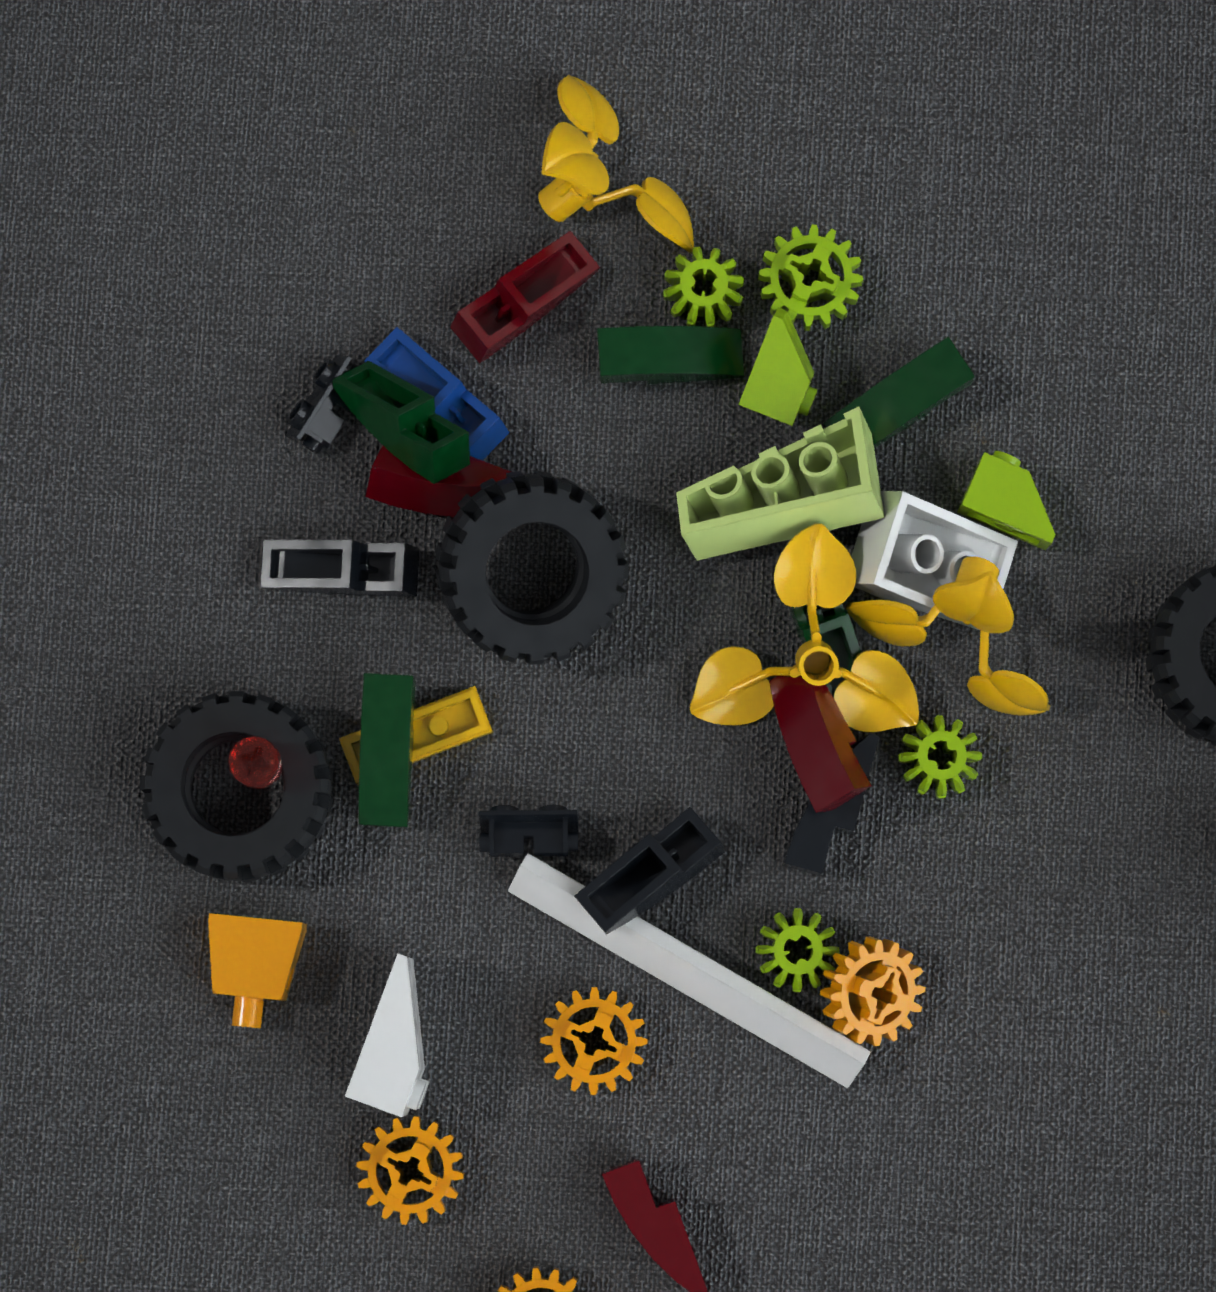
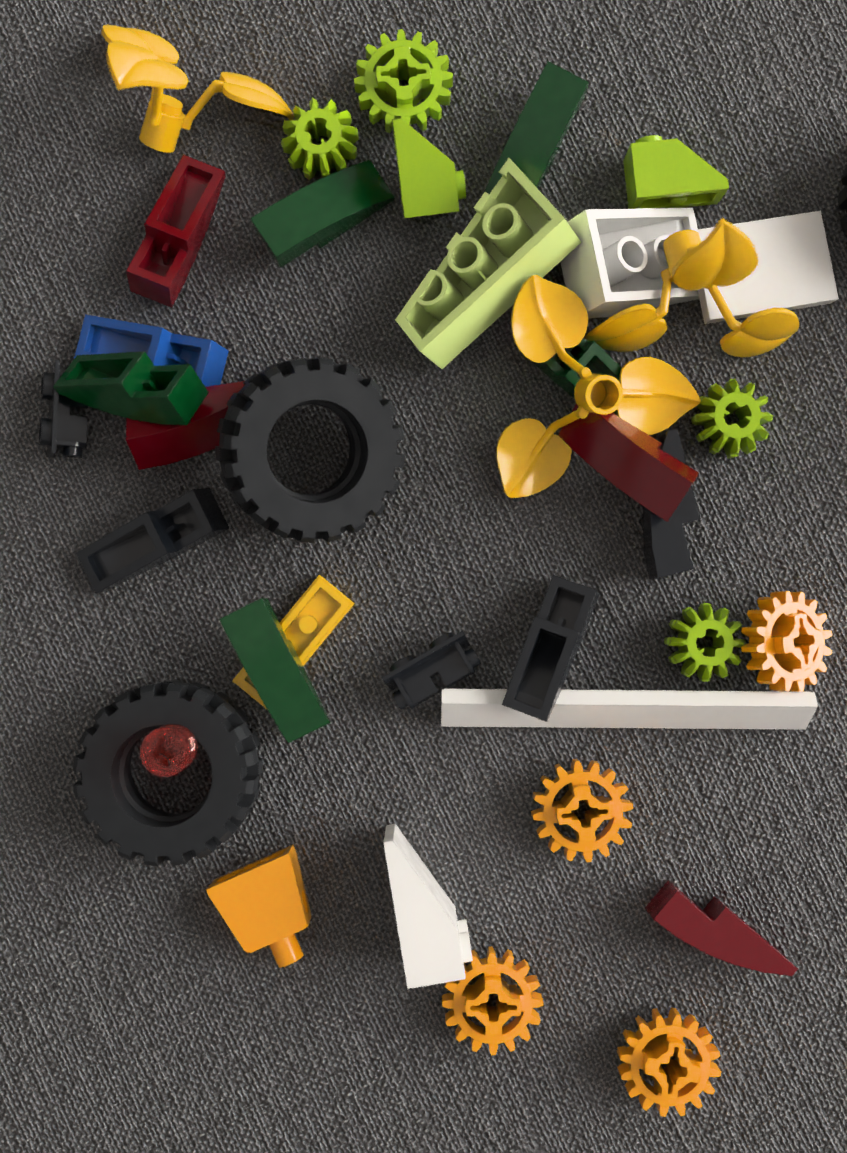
camera: 30 degrees left, 5 degrees up
(1057, 635) = (790, 271): none -> white tile

